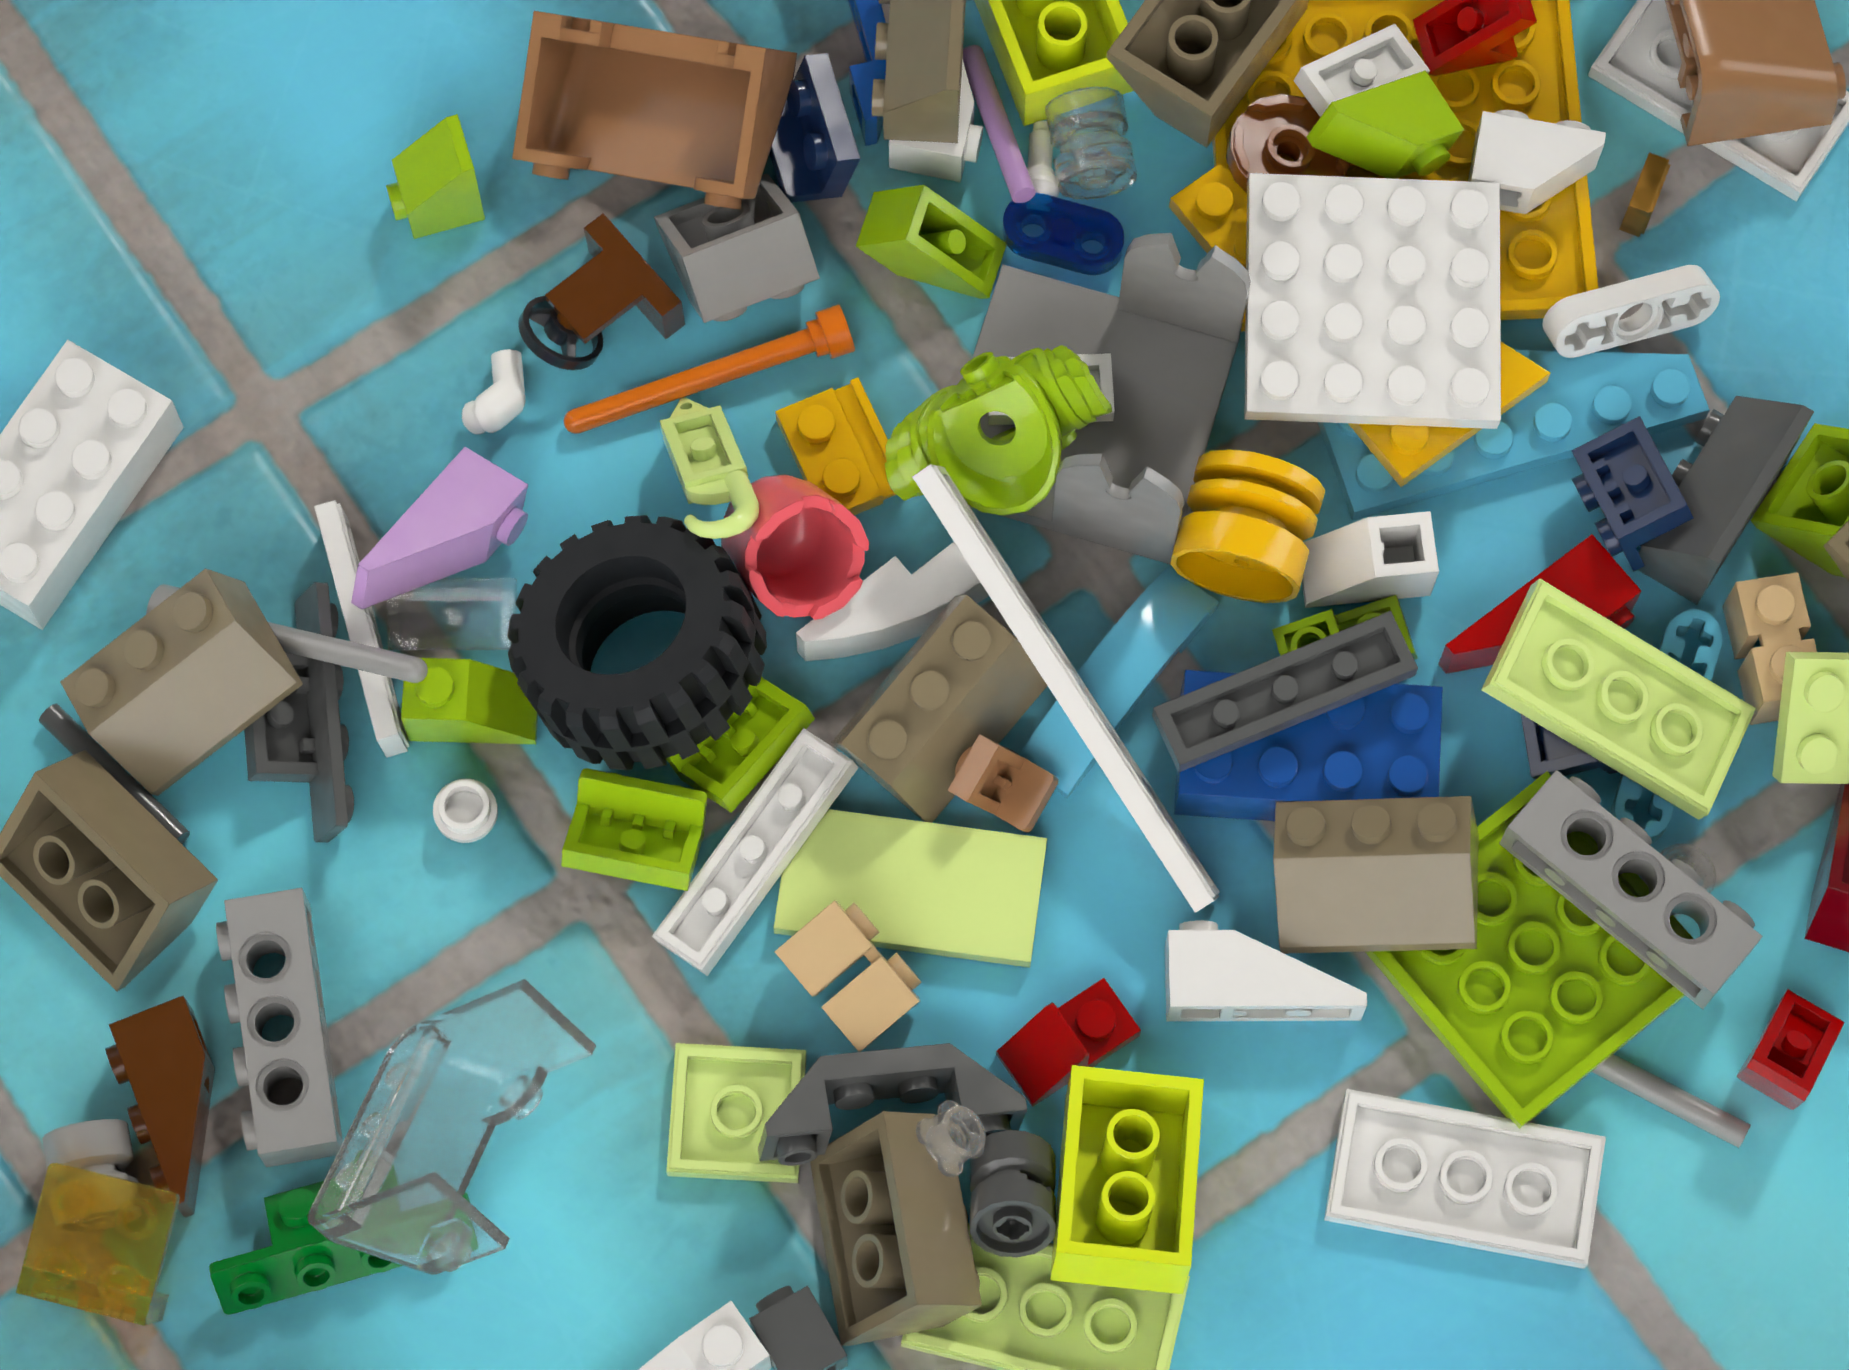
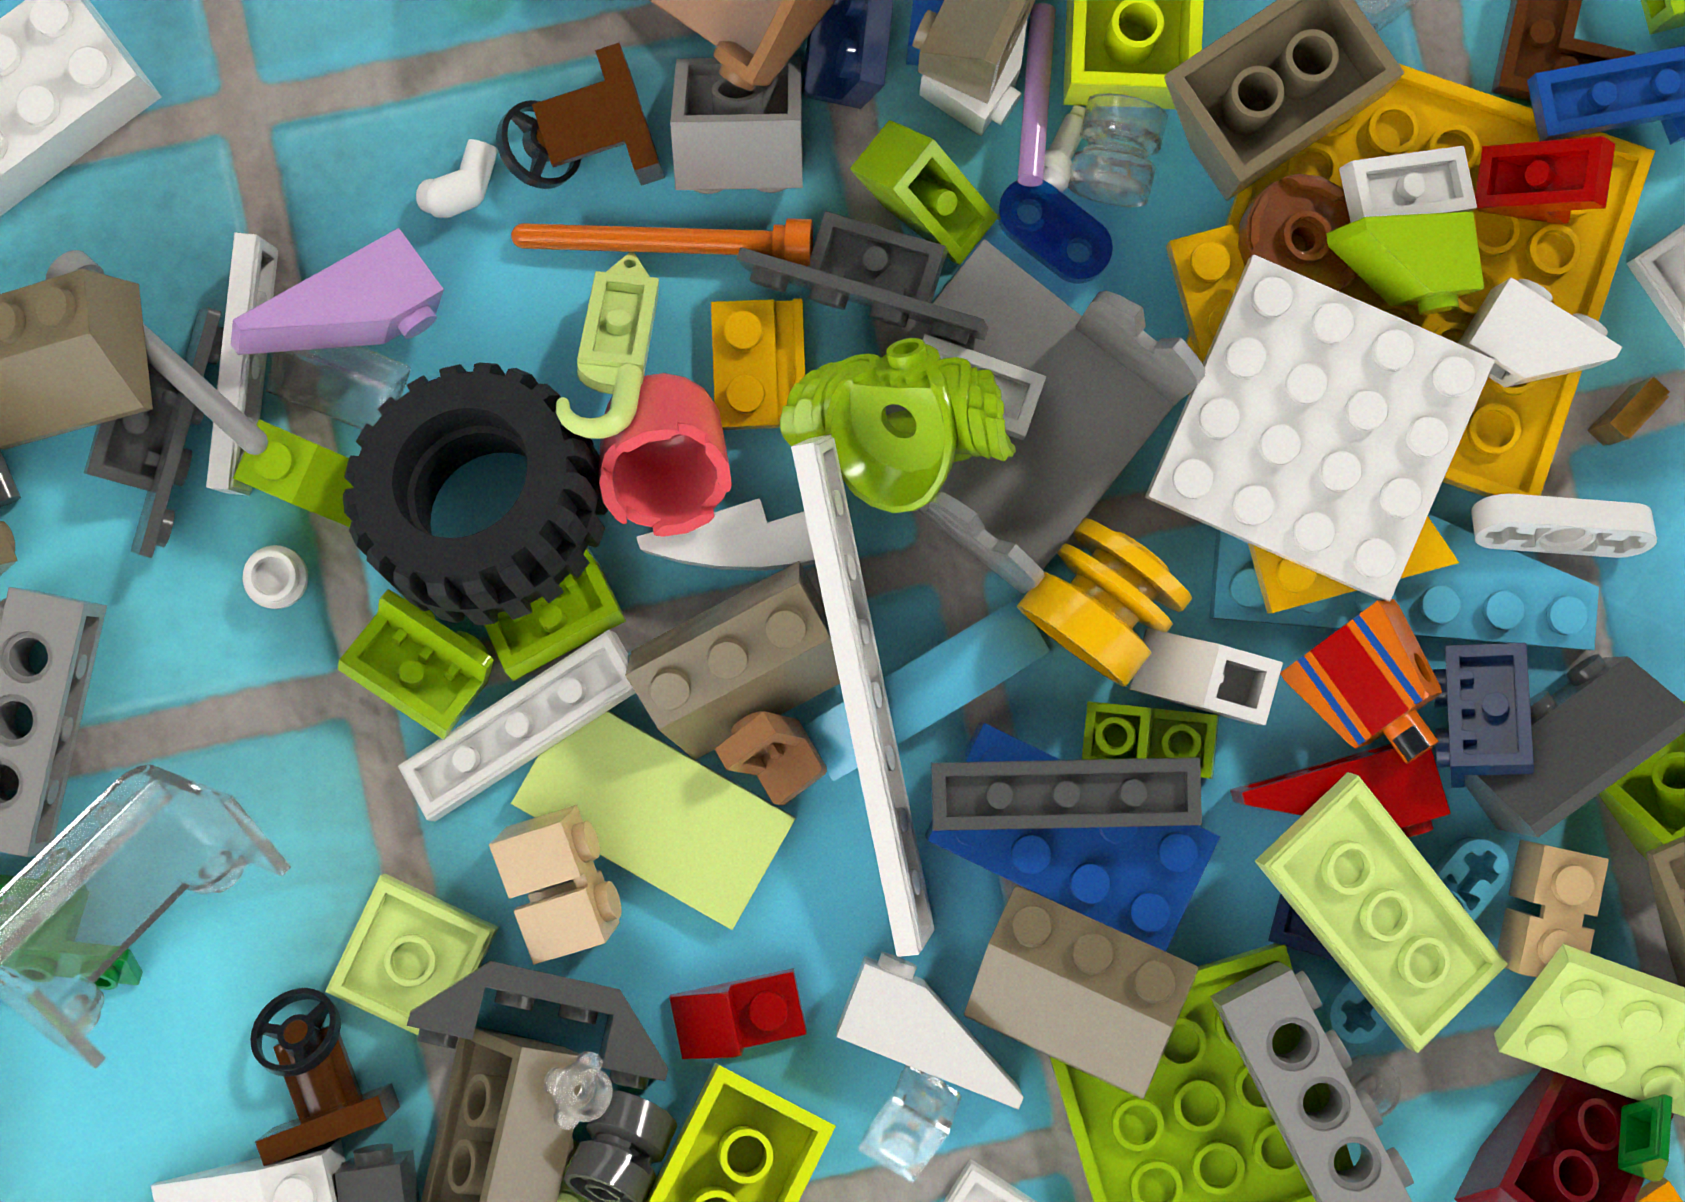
camera: 25 degrees right, 15 degrees up
(688, 1252) = (316, 1077): none -> reddish brown piece
(911, 327) = (874, 269): none -> dark grey bracket
(1274, 1074) = (911, 1123): none -> clear bracket
(1517, 502) = (1370, 681): none -> torso

